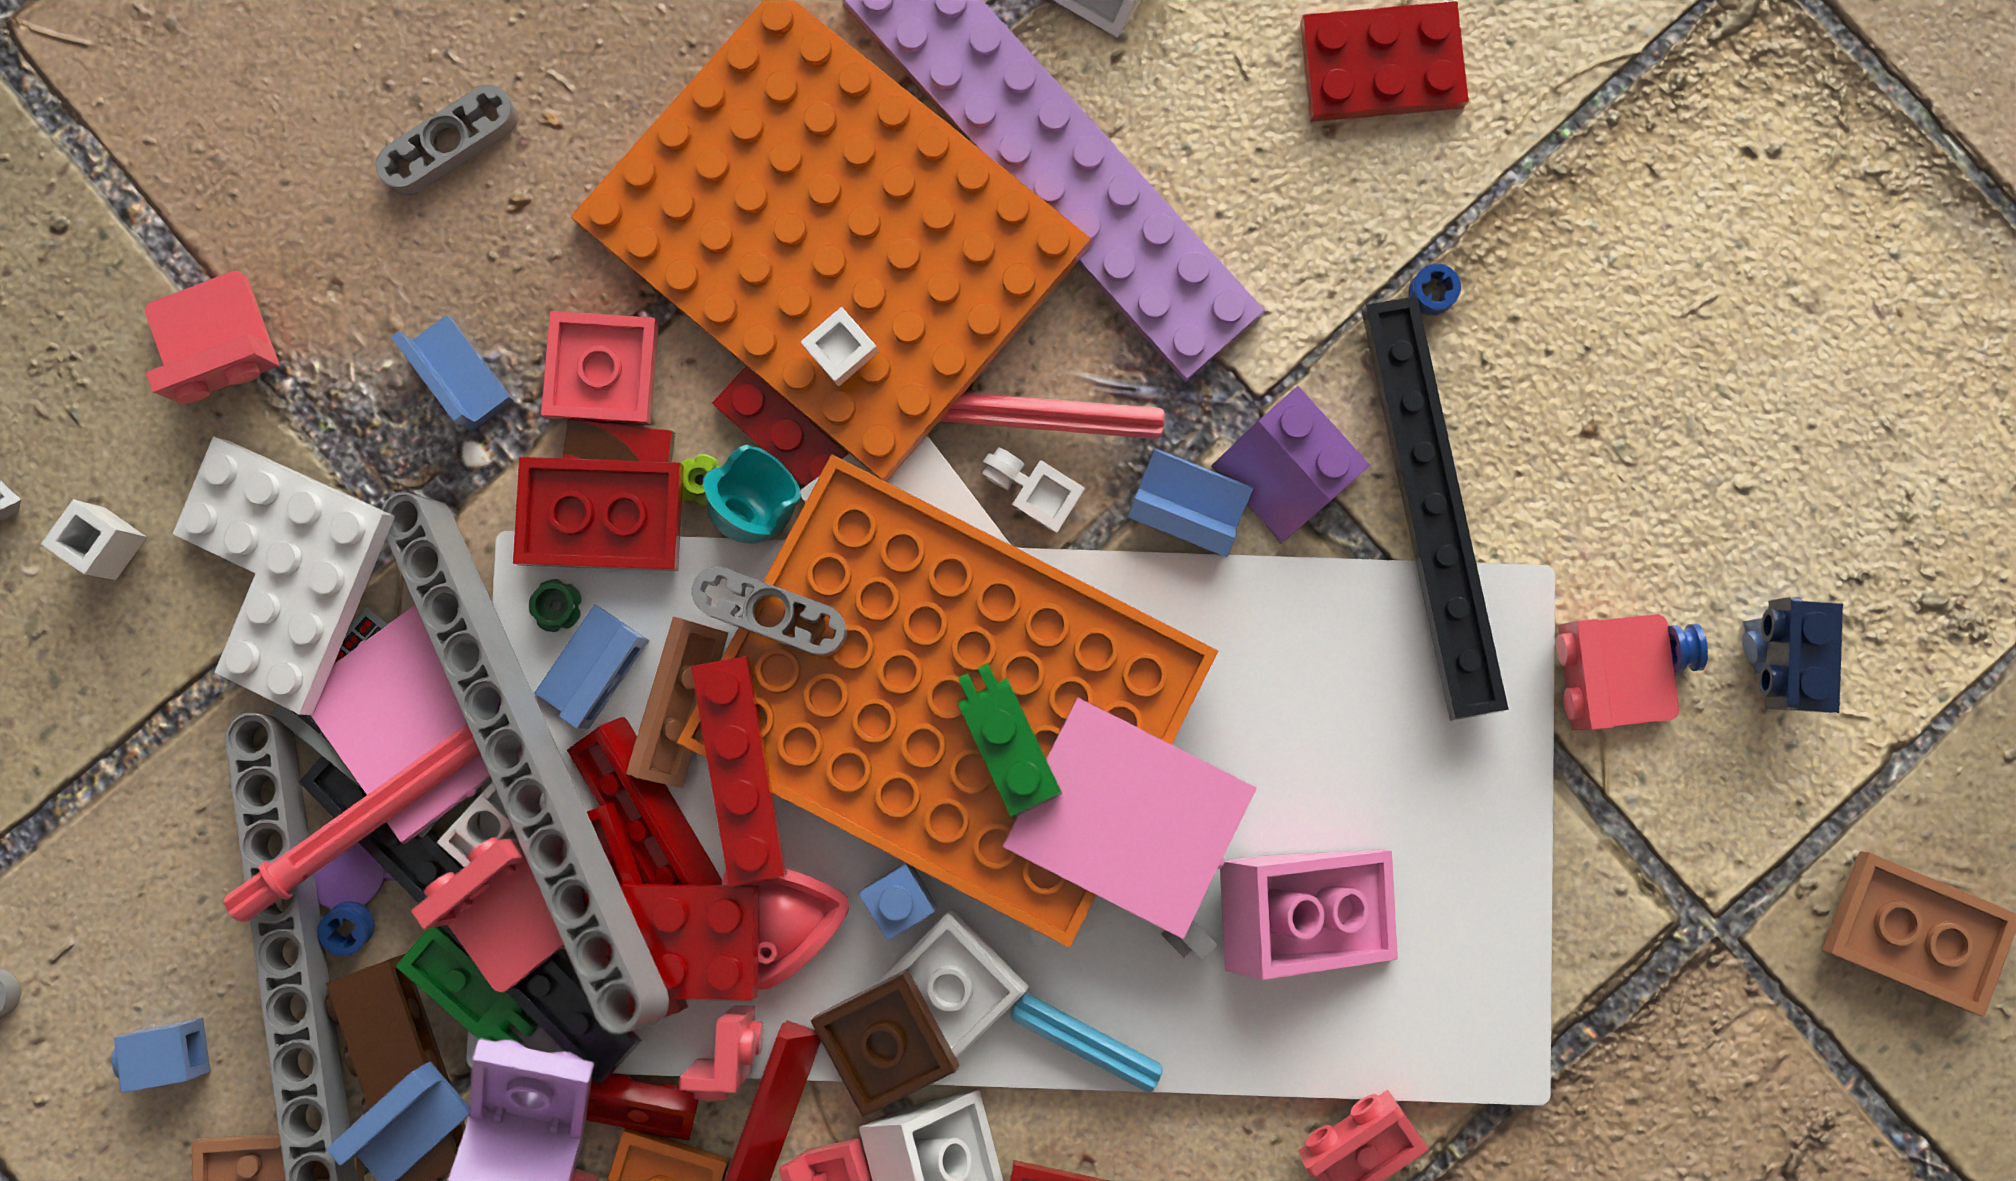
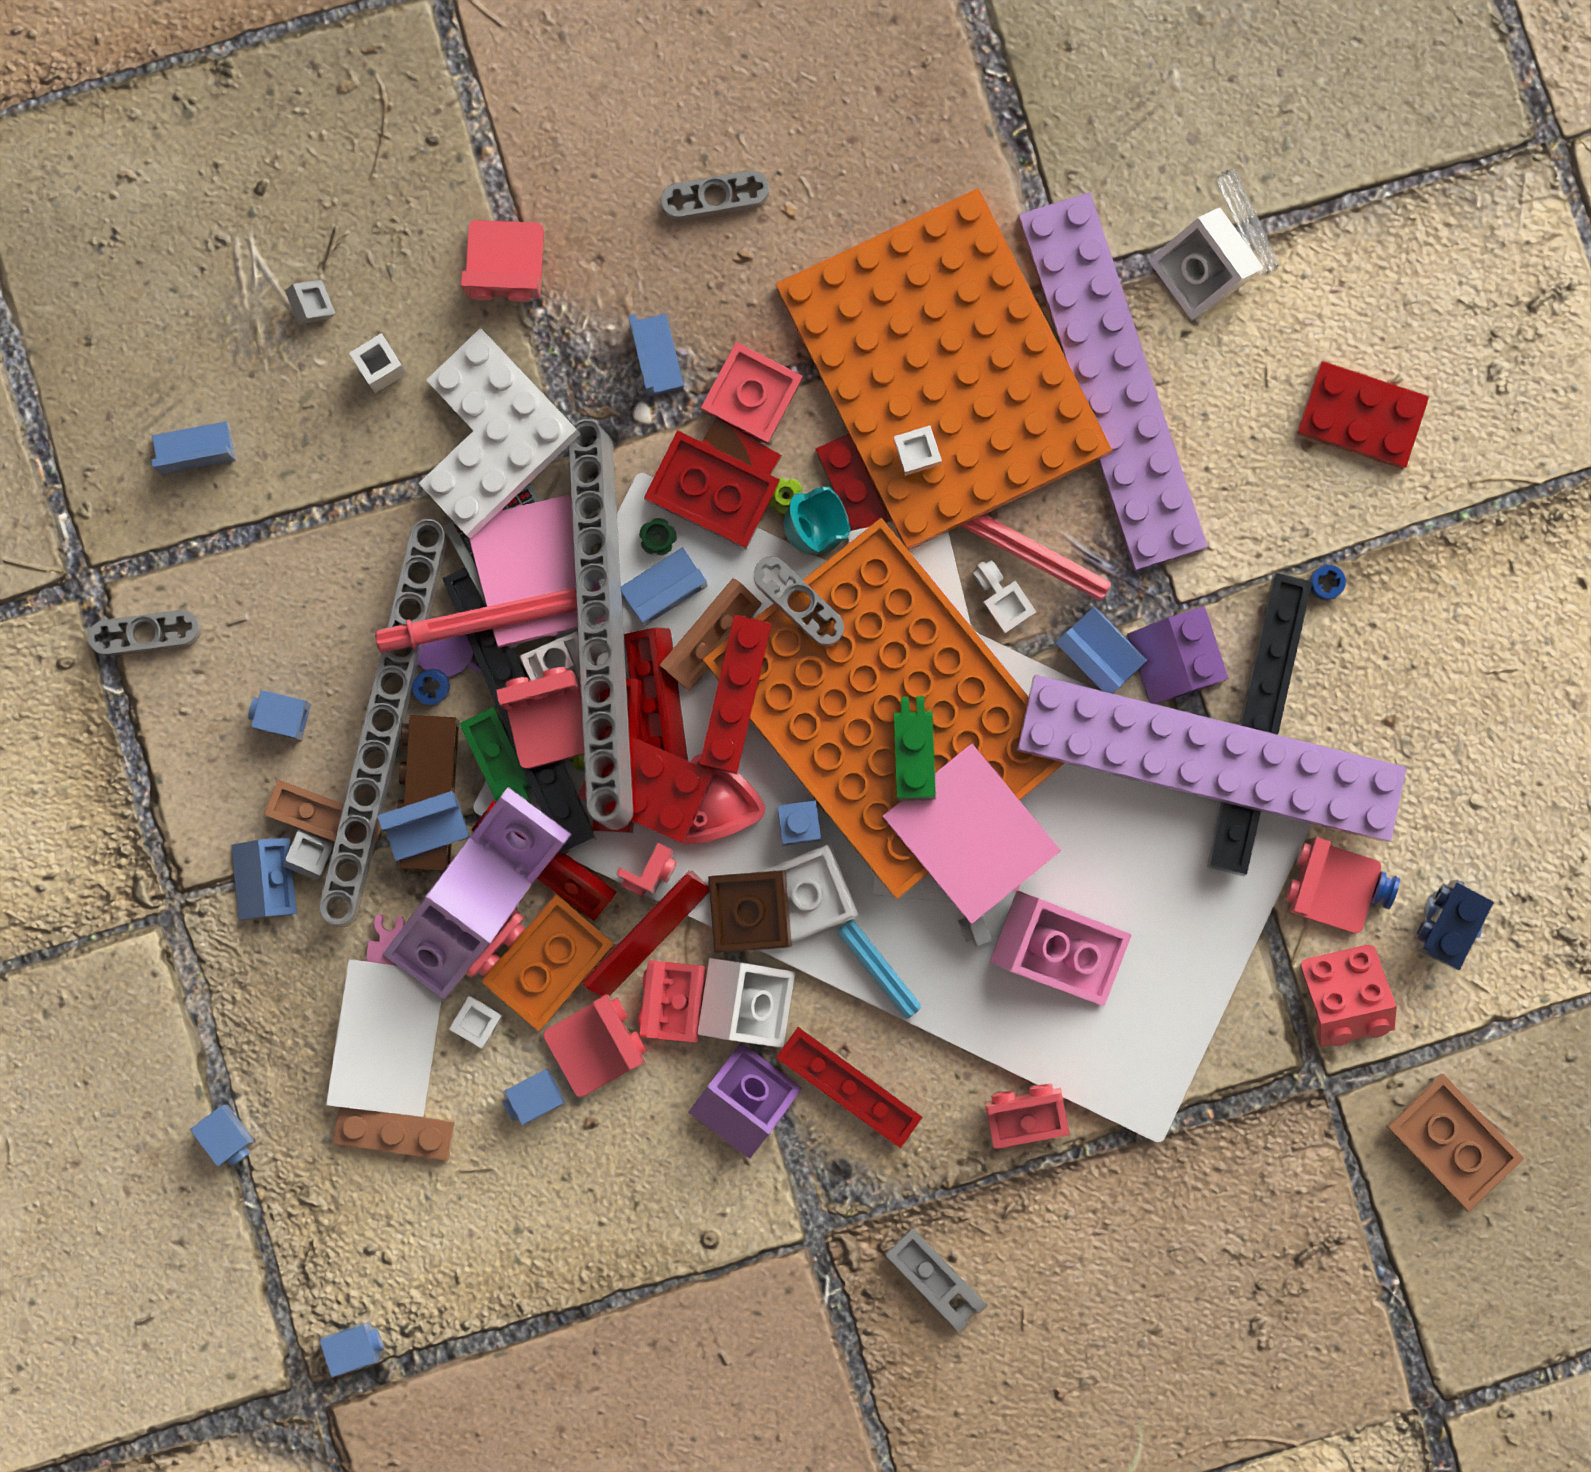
camera: 20 degrees right, 0 degrees up
(1393, 579) = (1211, 758): none -> lavender plate
(1702, 802) = (1349, 995): none -> coral bracket

